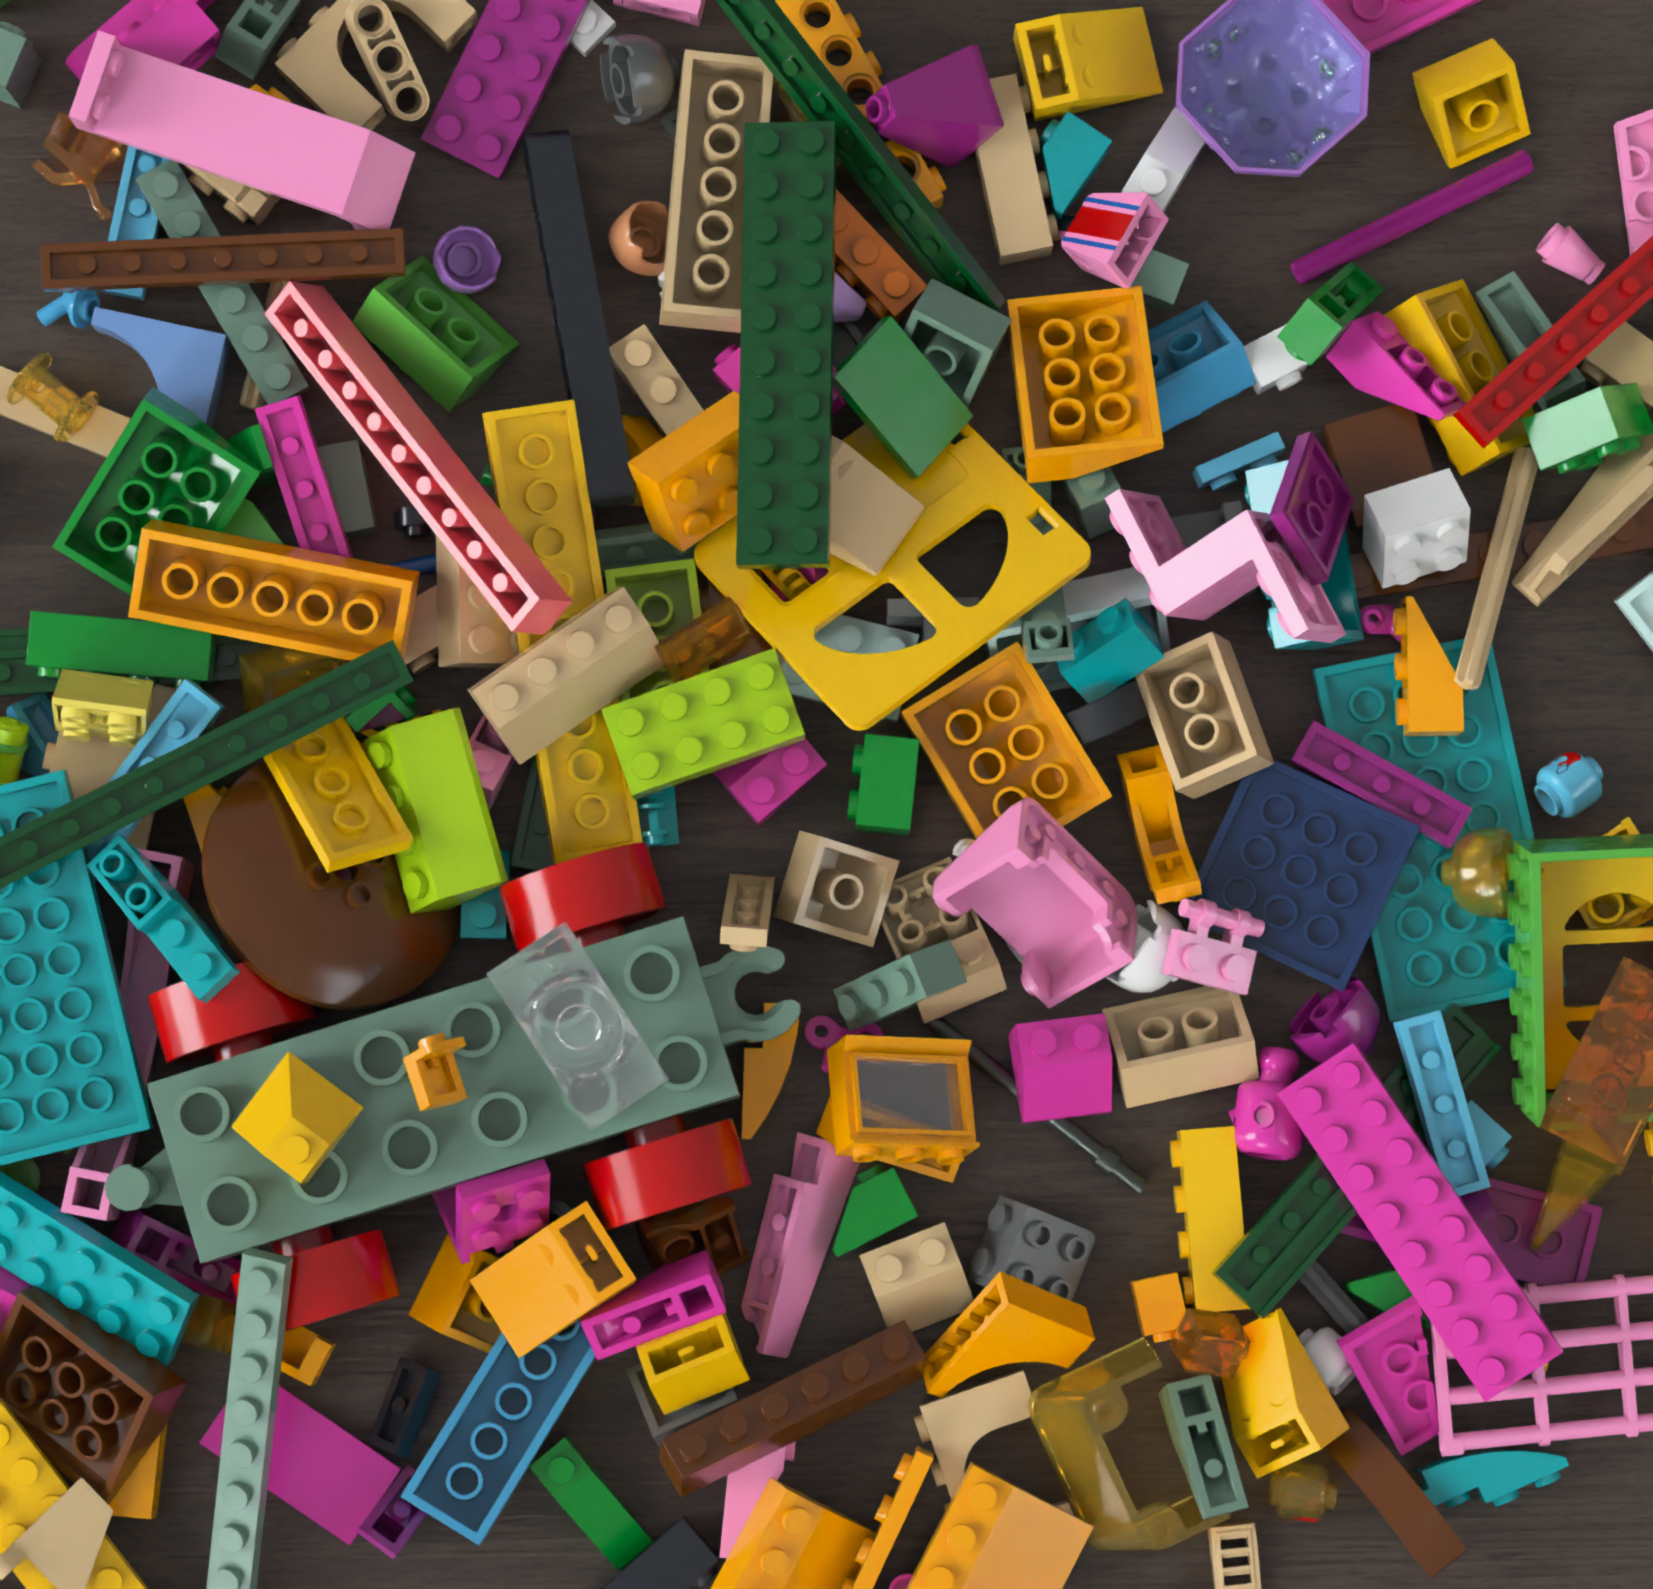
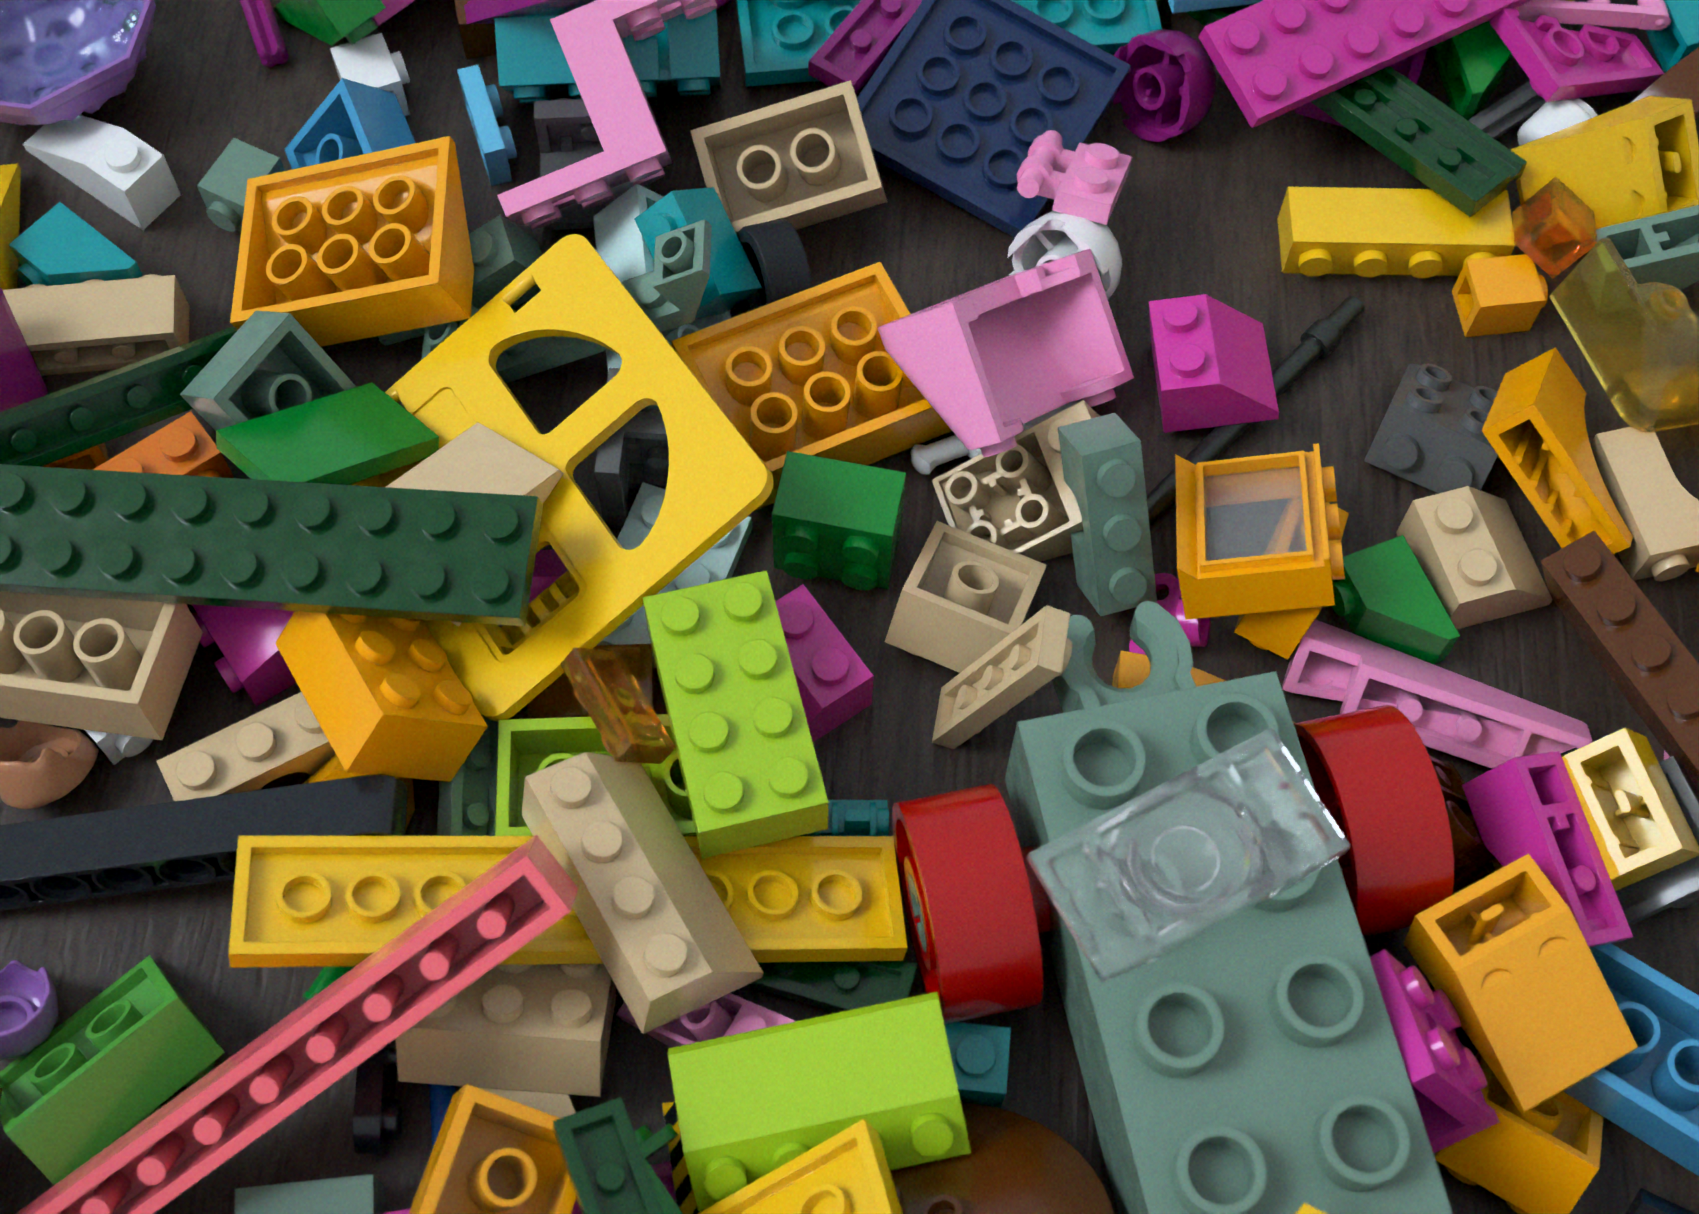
camera: 85 degrees left, 20 degrees down
(435, 1072) = (1250, 1082): light orange bracket -> none
(1112, 234) = (177, 209): bright pink torso -> none
(1157, 825) = (922, 244): light orange arch -> none
(1180, 1044) = (1182, 236): tan slope -> none
(1260, 1117) = (1263, 156): dark pink piece -> none

